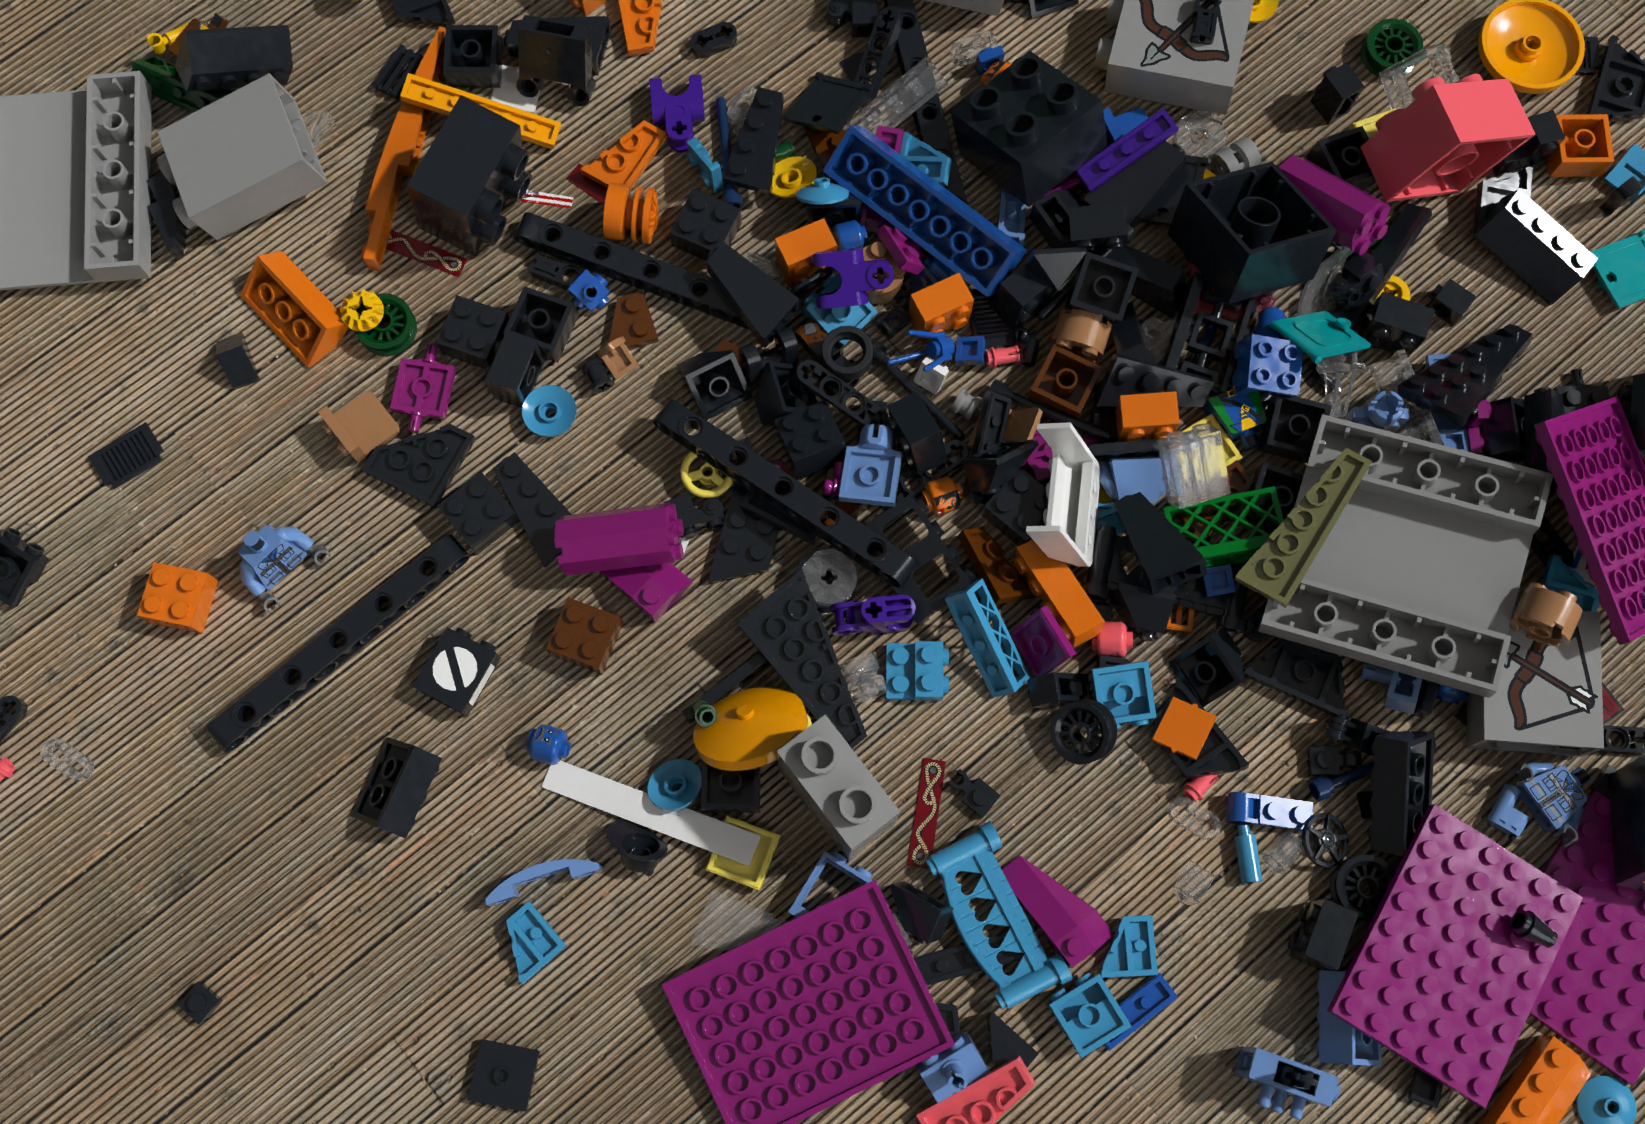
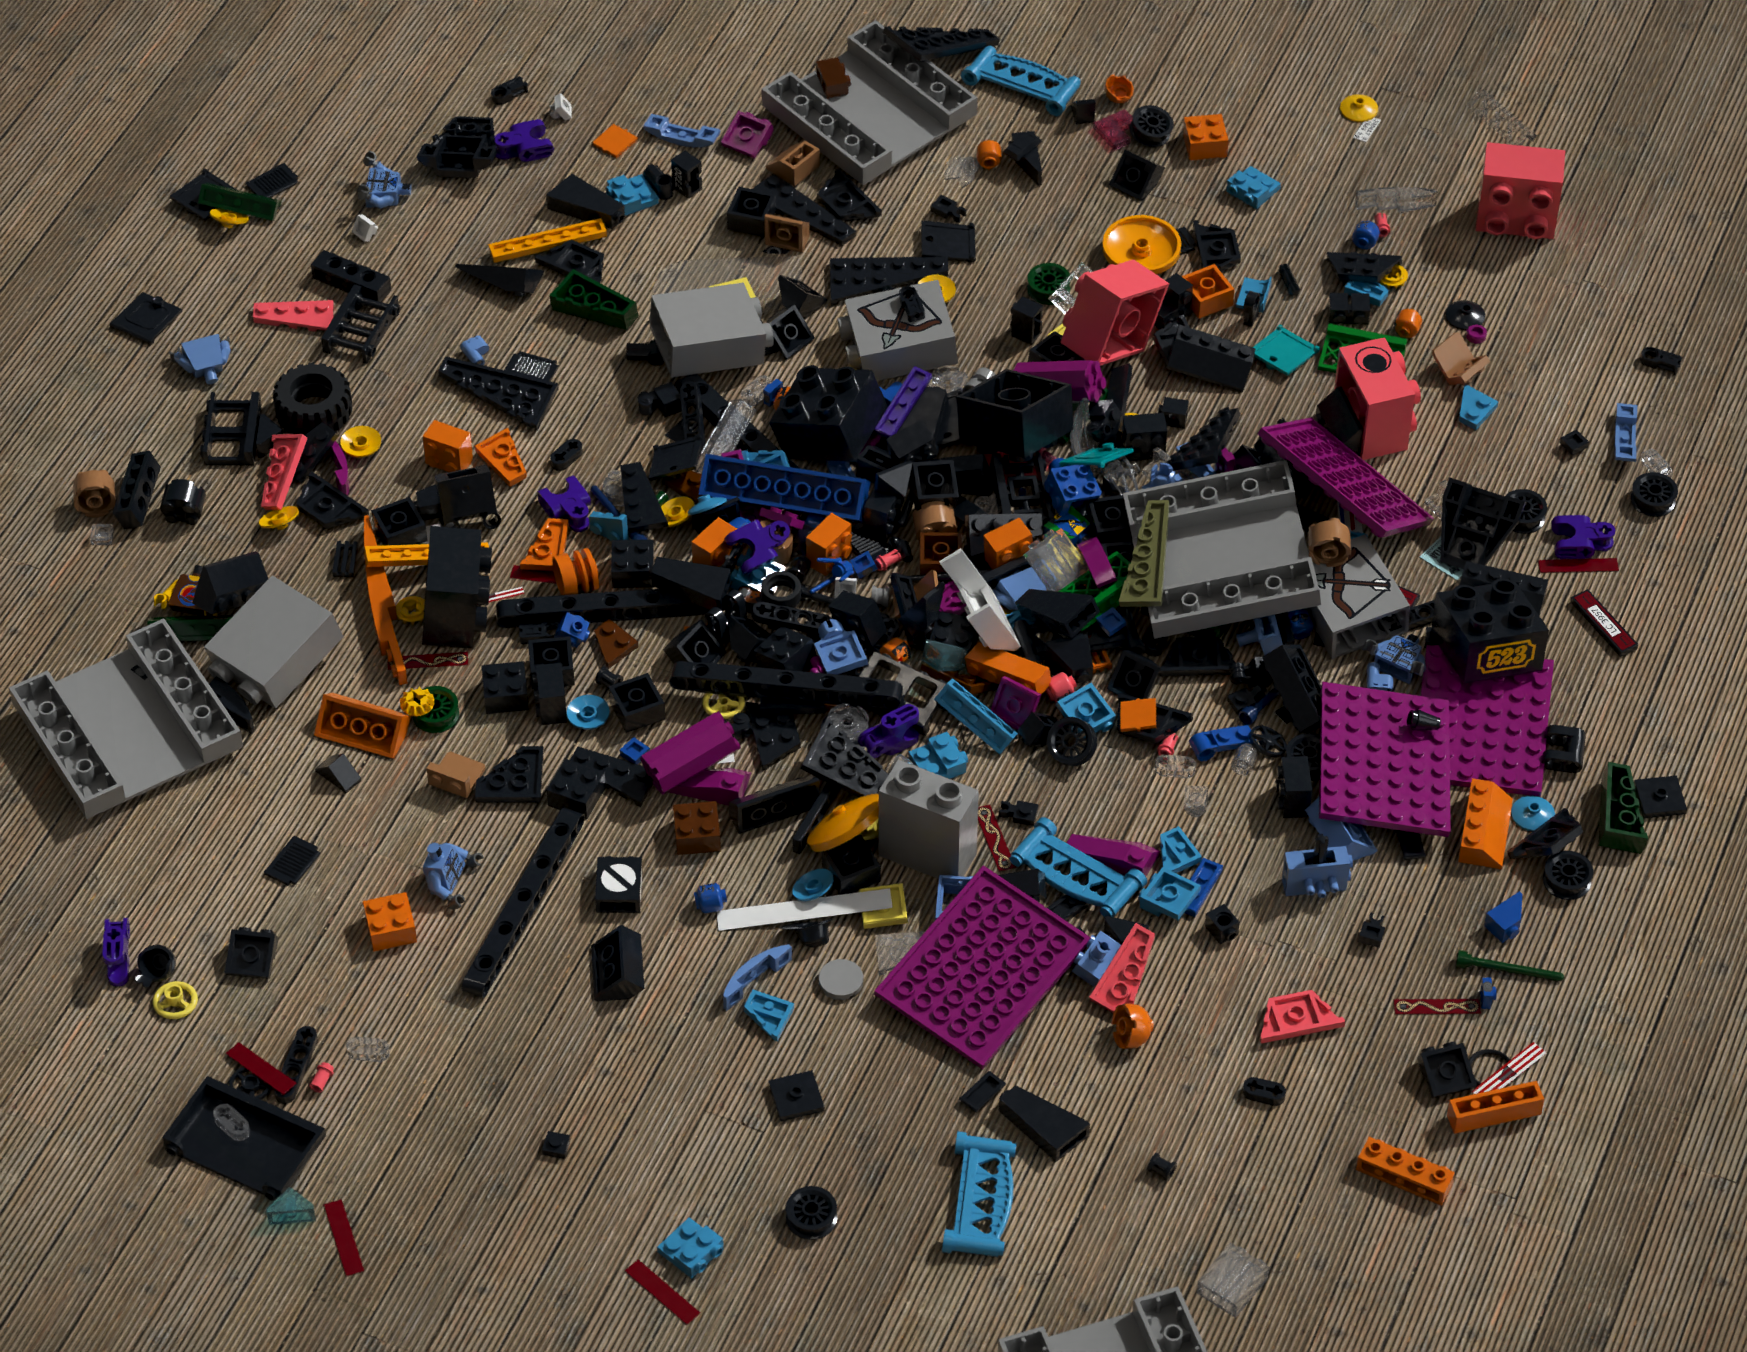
camera: 25 degrees left, 25 degrees down
(423, 388) = (487, 735): magenta plate -> none
(574, 490) = (633, 751): none -> blue plate
(607, 427) = (637, 702): none -> black brick
(617, 357) = (617, 662): medium nougat tile -> none
(641, 932) = (841, 979): none -> light grey tile
(689, 643) = (774, 803): none -> black slope
(704, 713) = (811, 825): dark green pin -> none
(992, 534) = (944, 656): none -> clear light blue slope
(1122, 1078) = (1222, 924): none -> black brick
(1242, 488) = (1097, 562): none -> magenta slope
(1247, 855) = (1223, 771): dark azure cylinder -> none

